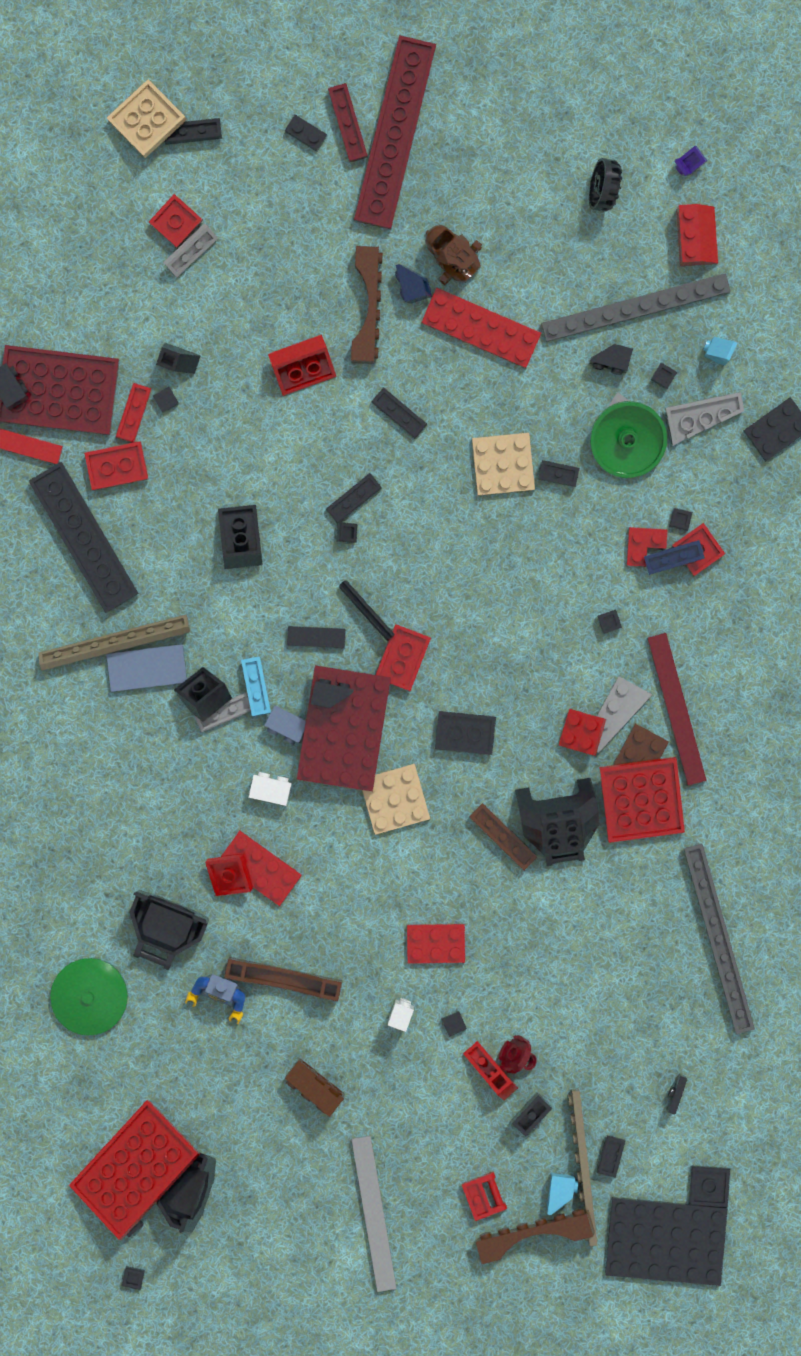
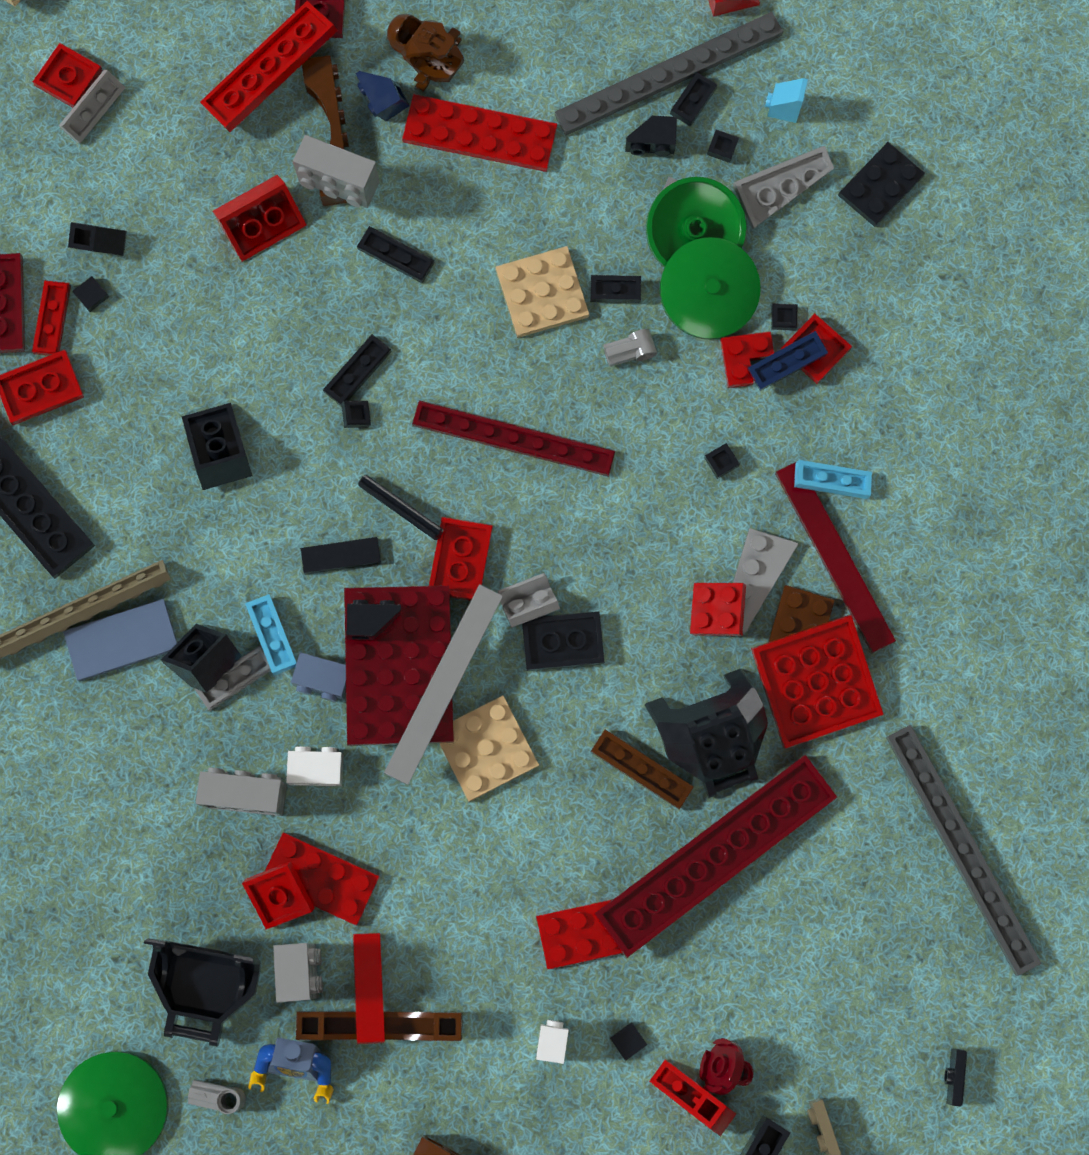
camera: 15 degrees left, 10 degrees down
(160, 1003) = (214, 1096): none -> light grey piece
(215, 798) = (241, 792): none -> light grey brick
(233, 932) = (297, 972): none -> light grey brick
(280, 951) = (368, 988): none -> red tile
(330, 246) = (268, 66): none -> red plate
(366, 348) = (336, 172): none -> light grey brick
(373, 750) = (443, 685): none -> light grey tile
(446, 698) = (528, 600): none -> light grey bracket
(459, 573) = (513, 438): none -> dark red tile
(543, 908) = (715, 856): none -> dark red plate
(562, 522) = (637, 346): none -> light grey piece
(629, 488) = (710, 288): none -> green dish
(649, 333) = (693, 99): none -> black plate
(687, 652) = (833, 479): none -> medium azure plate

